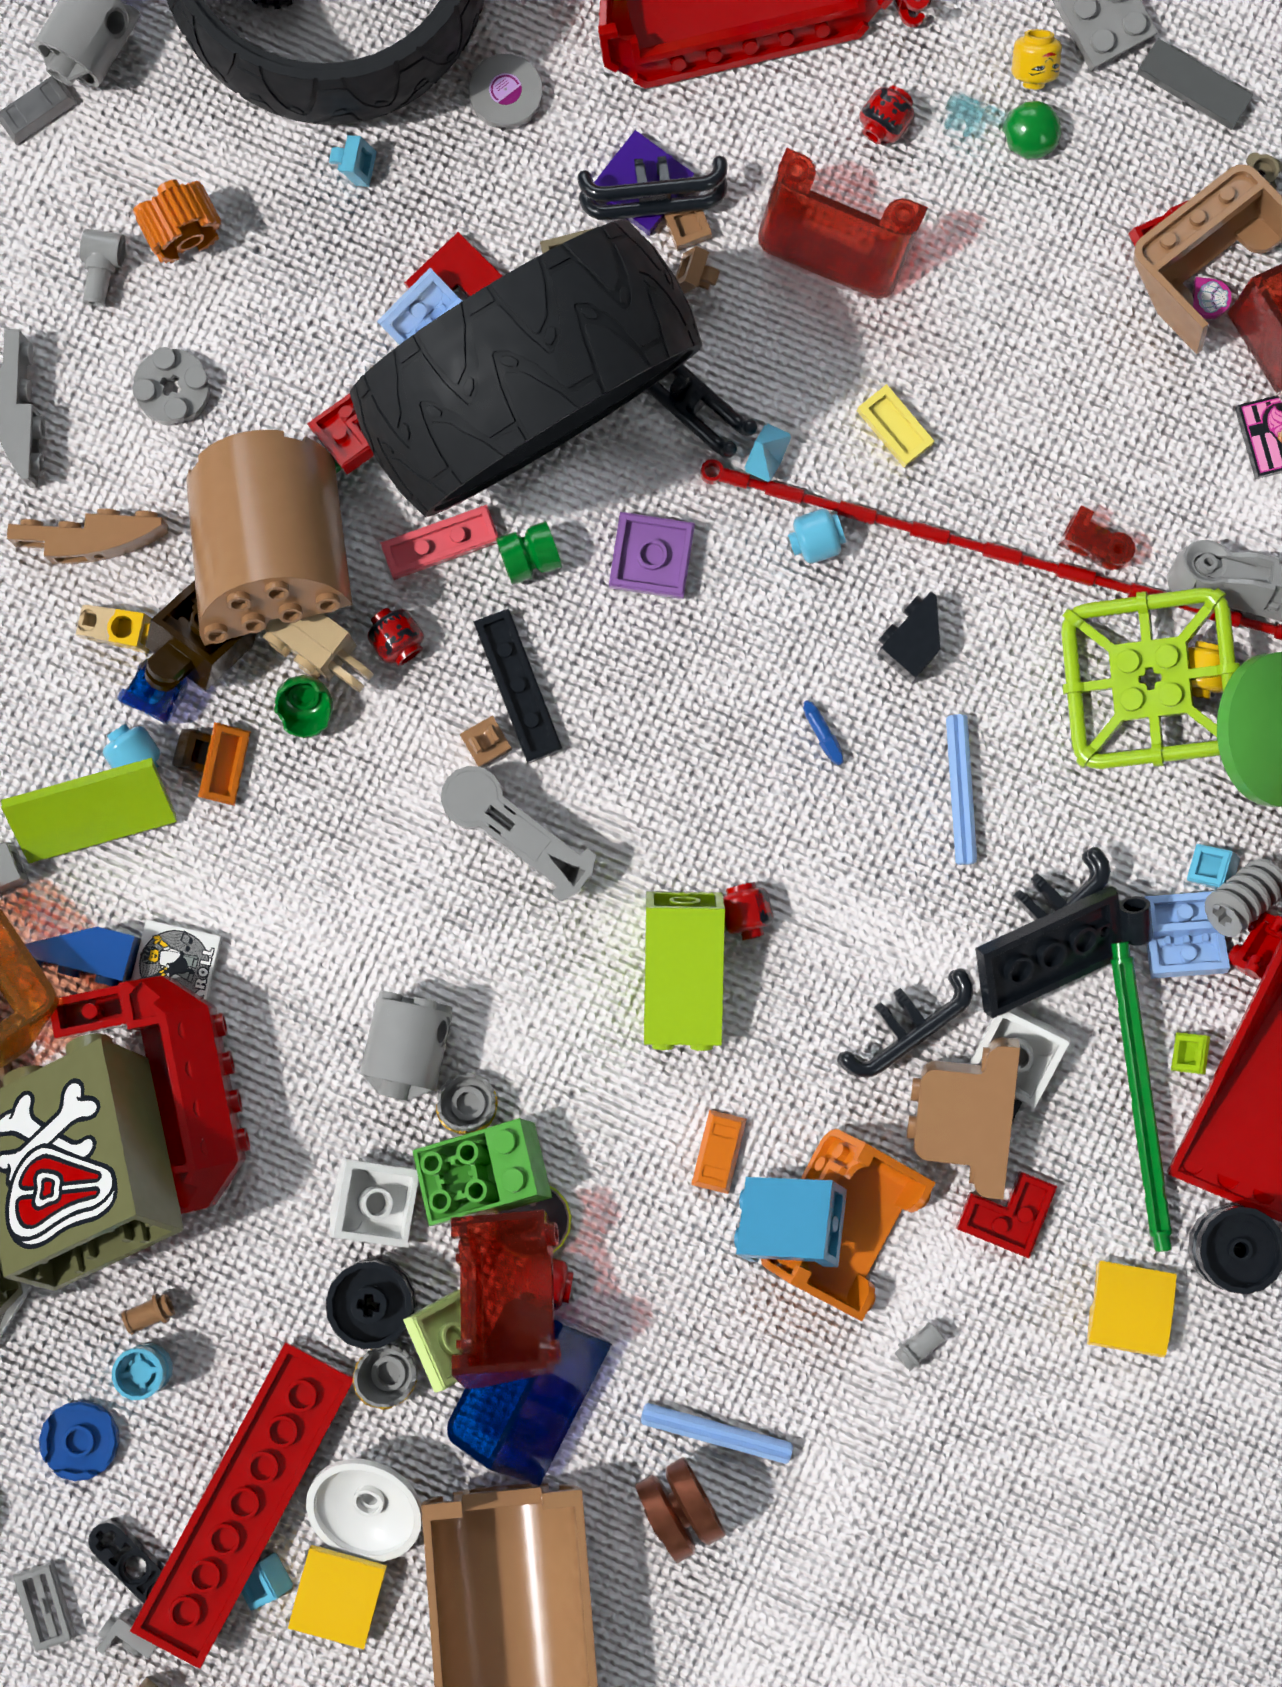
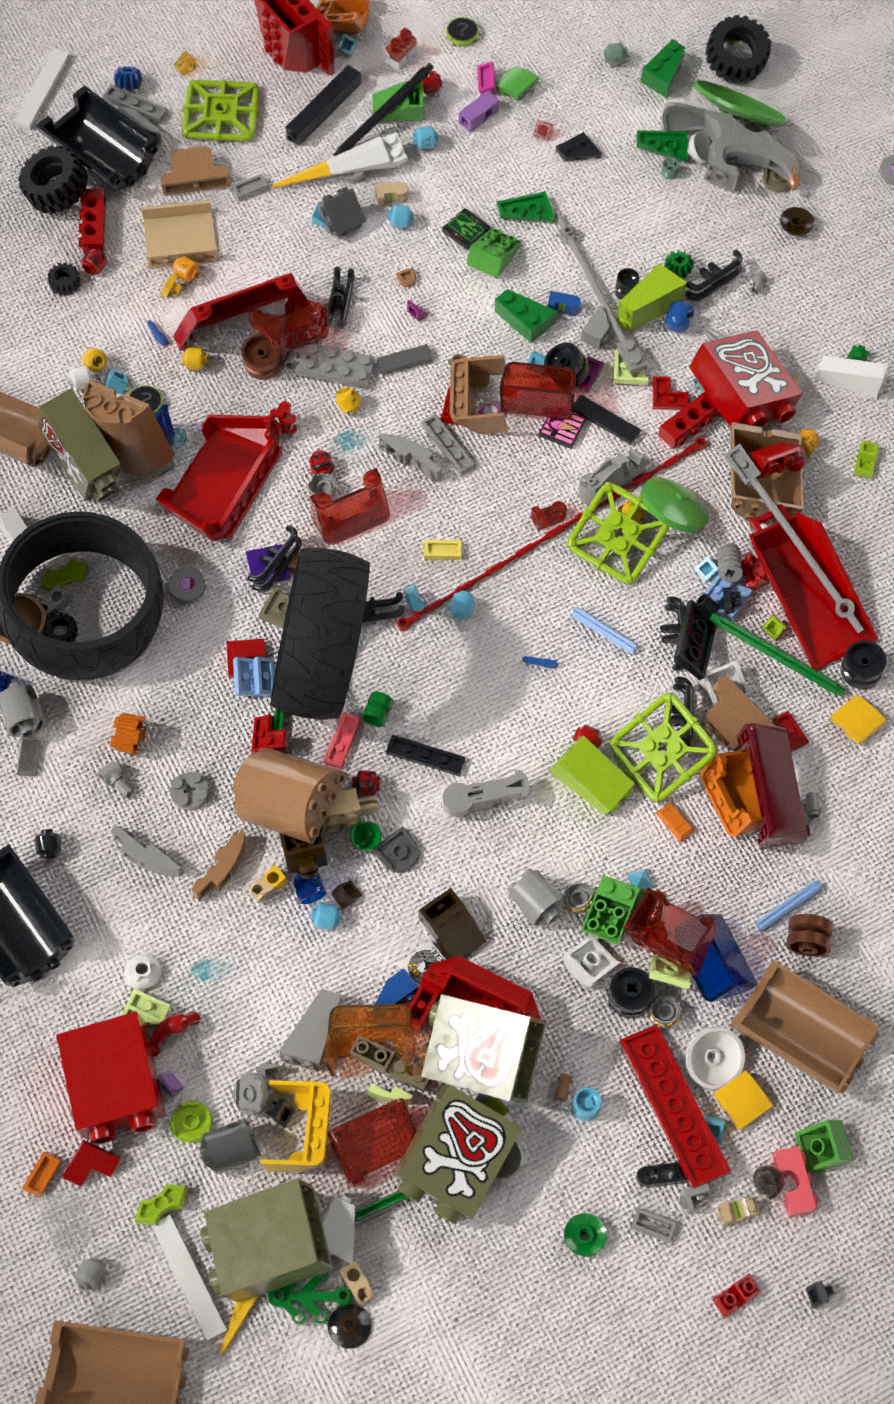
camera: 50 degrees left, 20 degrees down
(79, 1440) = (594, 1157): blue tile -> none
(89, 810) = (336, 947): lime tile -> none
(224, 764) = (360, 885): orange tile -> none
(263, 952) = (451, 925): none -> dark brown slope
(327, 774) = (398, 851): none -> dark grey tile
(355, 160) = (163, 656): medium azure tile -> none
(486, 741) = (437, 783): medium nougat tile -> none
(576, 1173) = (640, 879): none -> medium azure slope
(651, 555) = (417, 668): medium lavender plate -> none
(791, 1220) = (724, 808): dark azure panel -> none
(832, 1065) = (675, 749): none -> lime plate
(844, 149) = (322, 483): none -> light grey hair
(891, 1269) = (775, 785): none -> dark red windscreen
(915, 640) = (533, 602): black slope -> none
(1023, 230) = (408, 451): none -> light grey slope
(1032, 130) = (372, 422): green hair -> none
(1094, 280) = (448, 444): none -> light grey tile
(1176, 946) = (729, 600): none -> black tile

